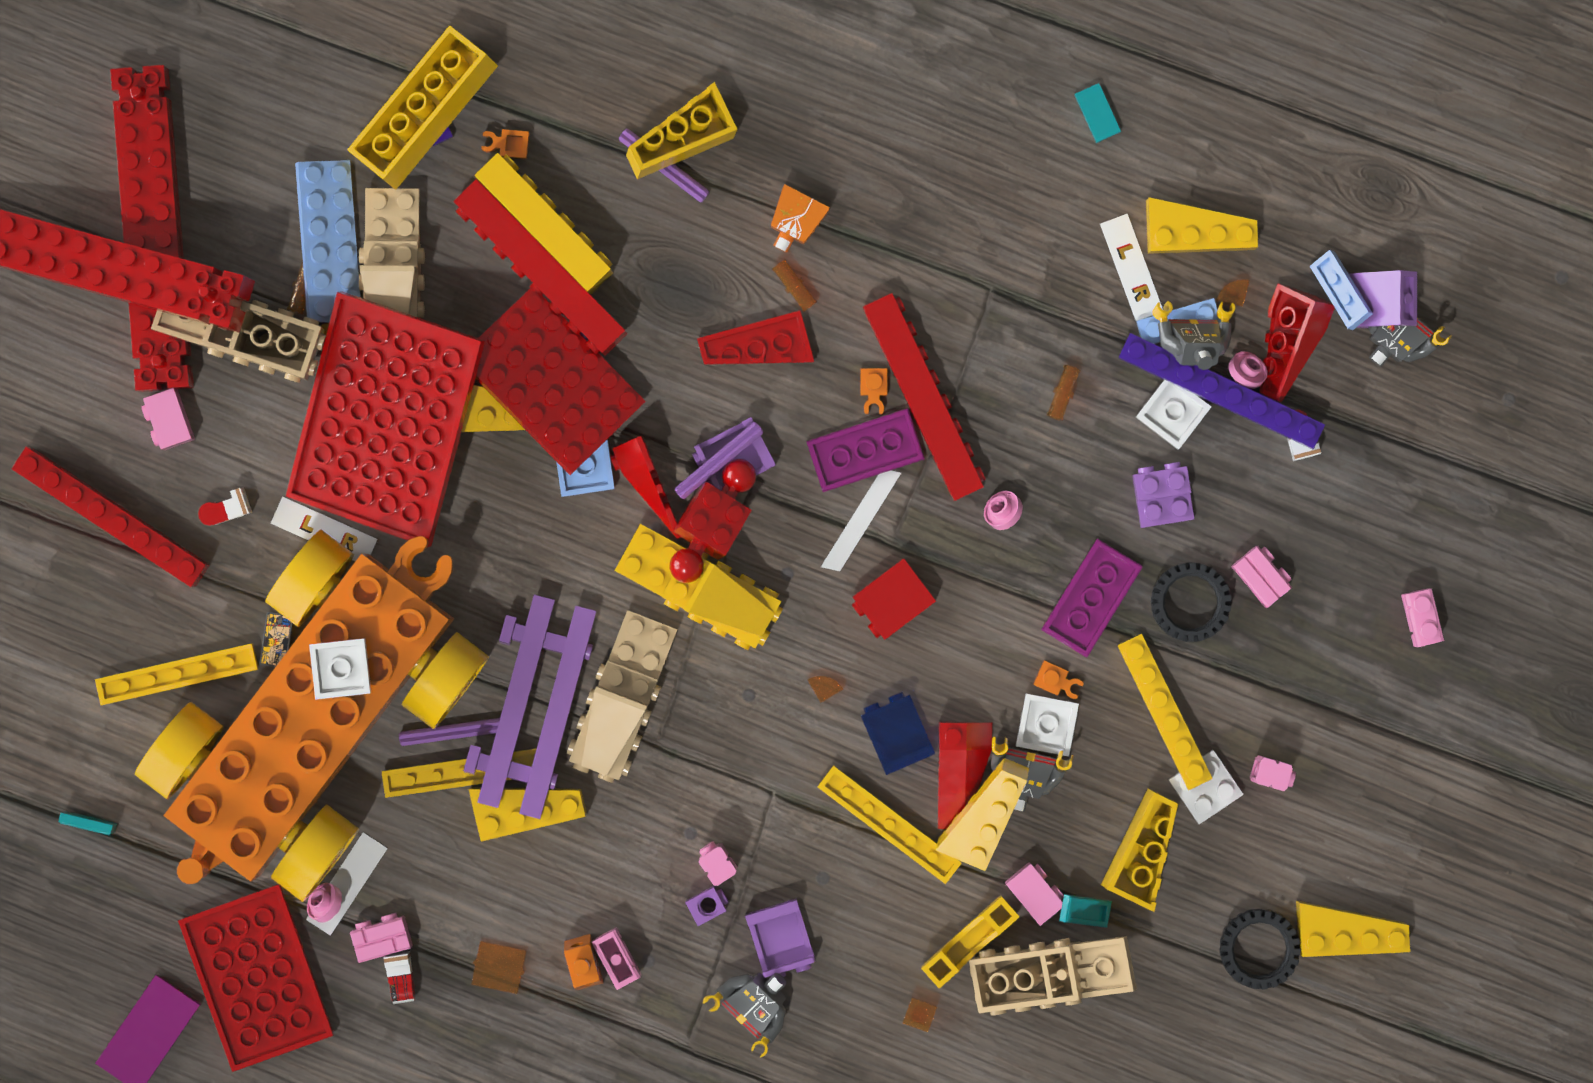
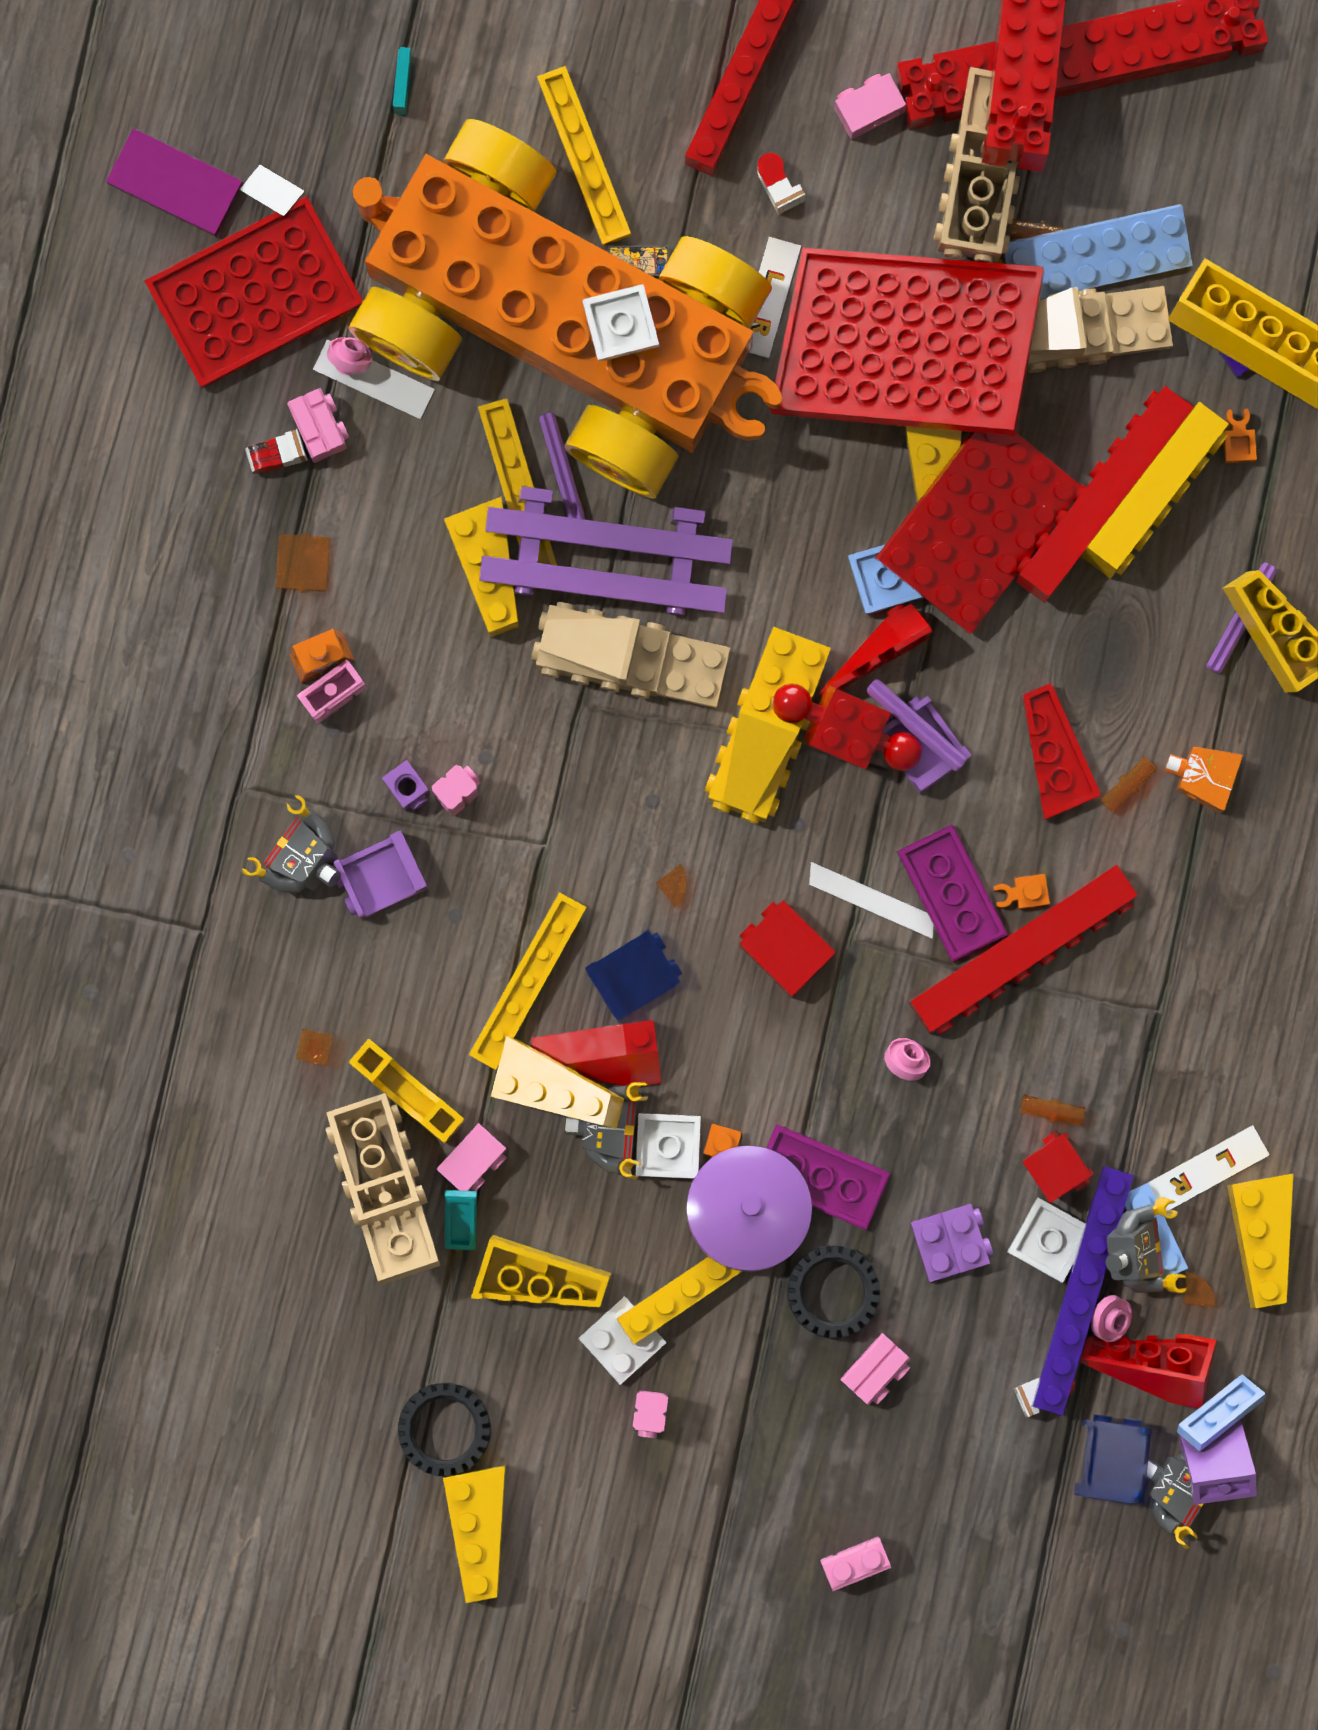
camera: 80 degrees right, 5 degrees down
(167, 950) = (271, 190): none -> white sticker
(1111, 664) = (749, 1208): none -> medium lavender dish
(1114, 397) = (1057, 1167): none -> red plate
(1368, 385) = (1115, 1460): none -> clear blue panel

